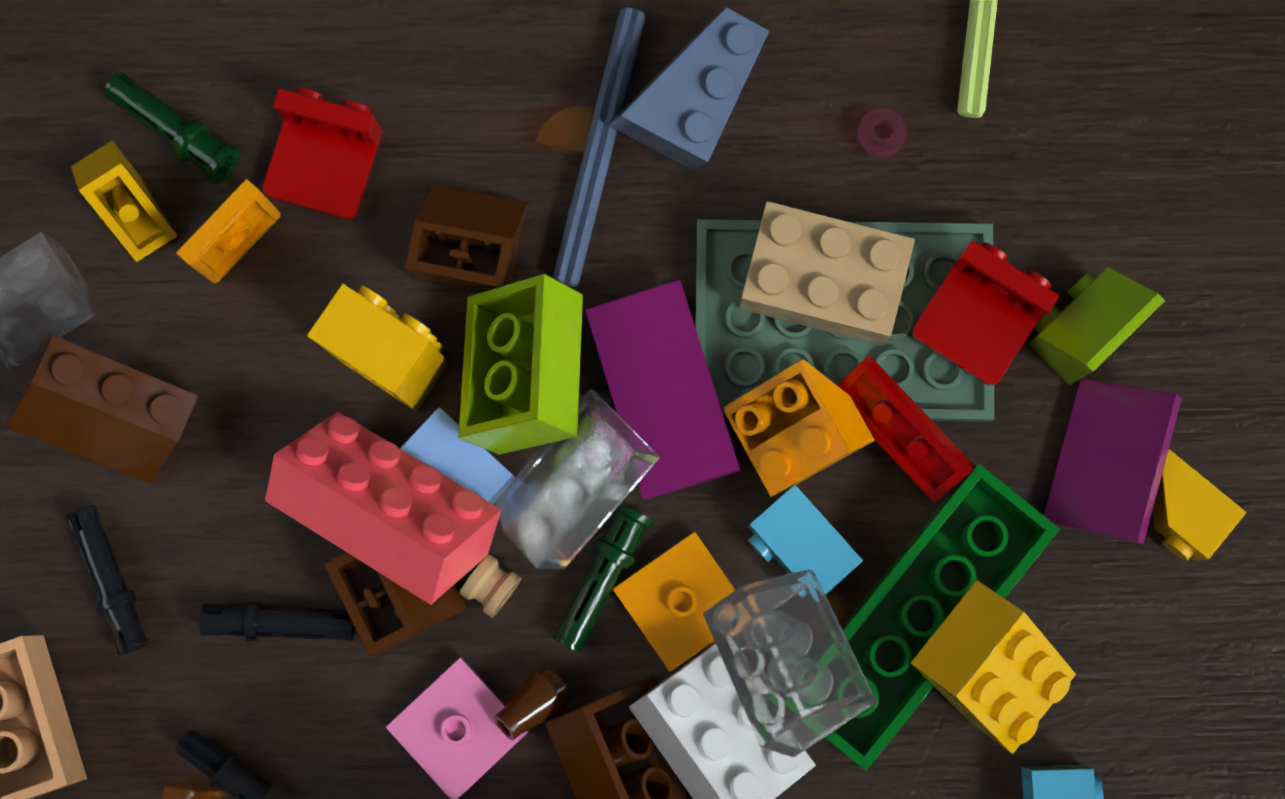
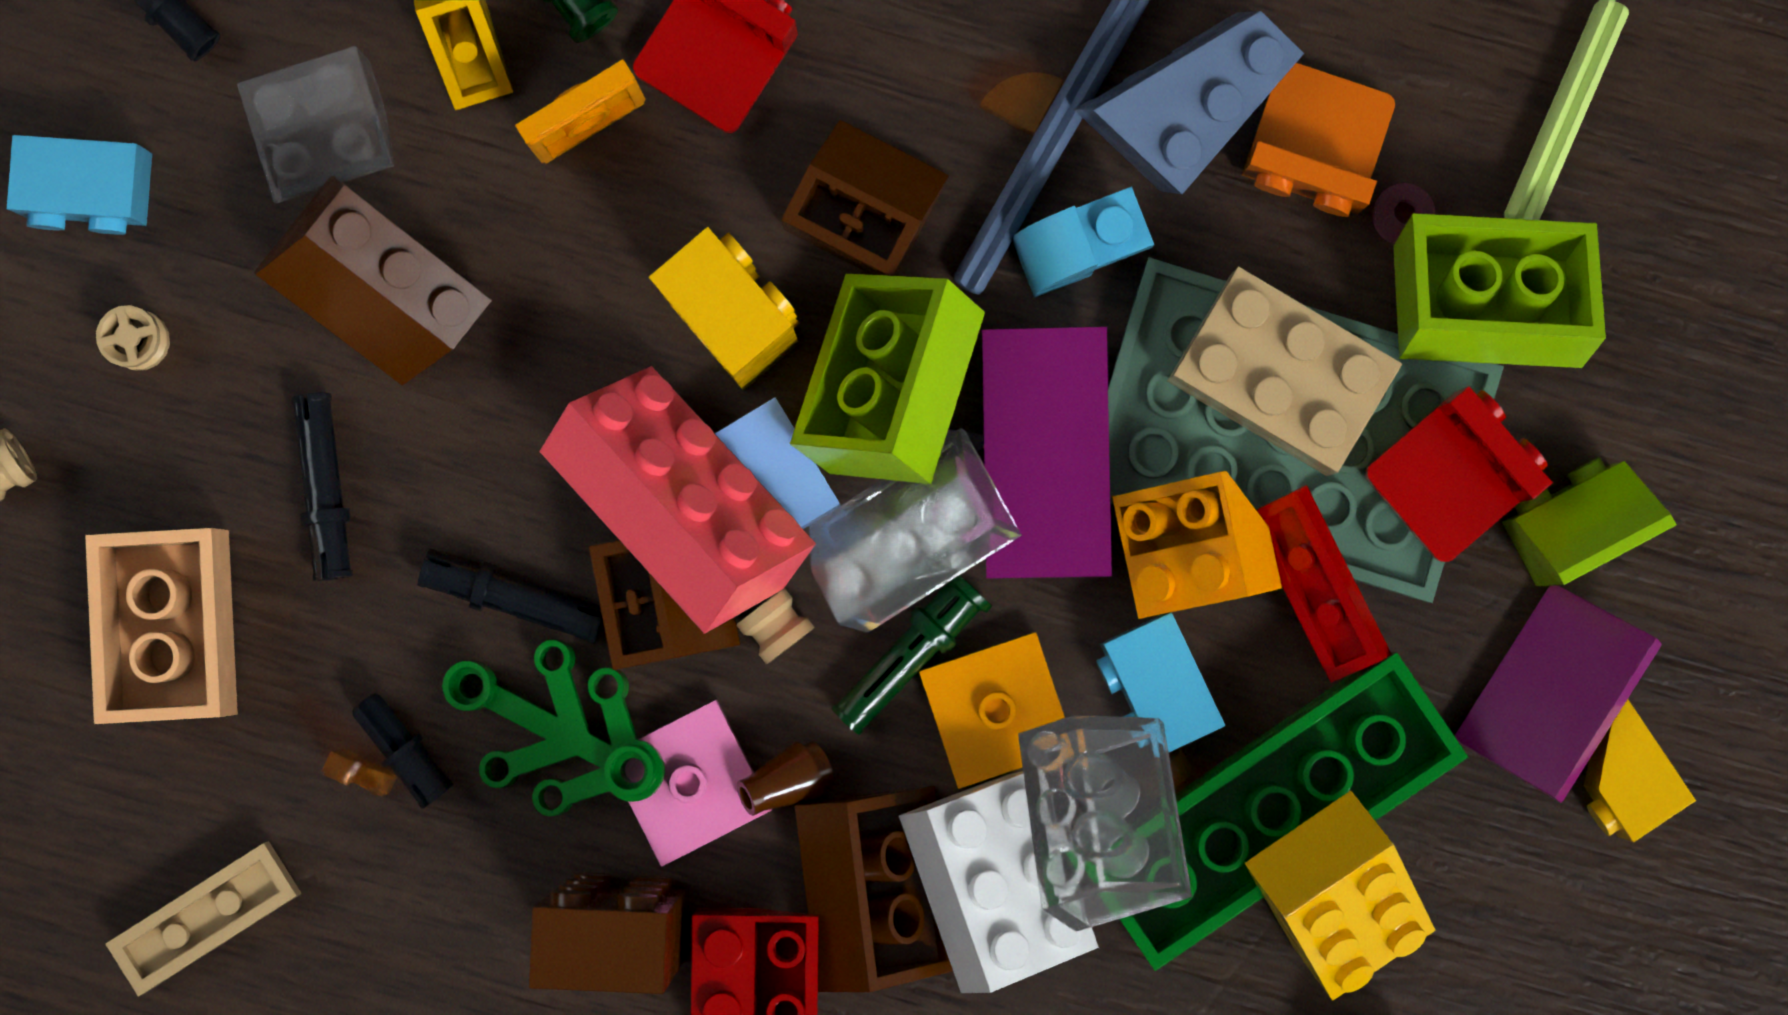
camera: 15 degrees right, 5 degrees up
(348, 718) = (565, 733): none -> green plant
(637, 221) = (1081, 240): none -> medium azure brick
(801, 95) = (1320, 140): none -> orange bracket
(971, 166) = (1498, 291): none -> lime brick

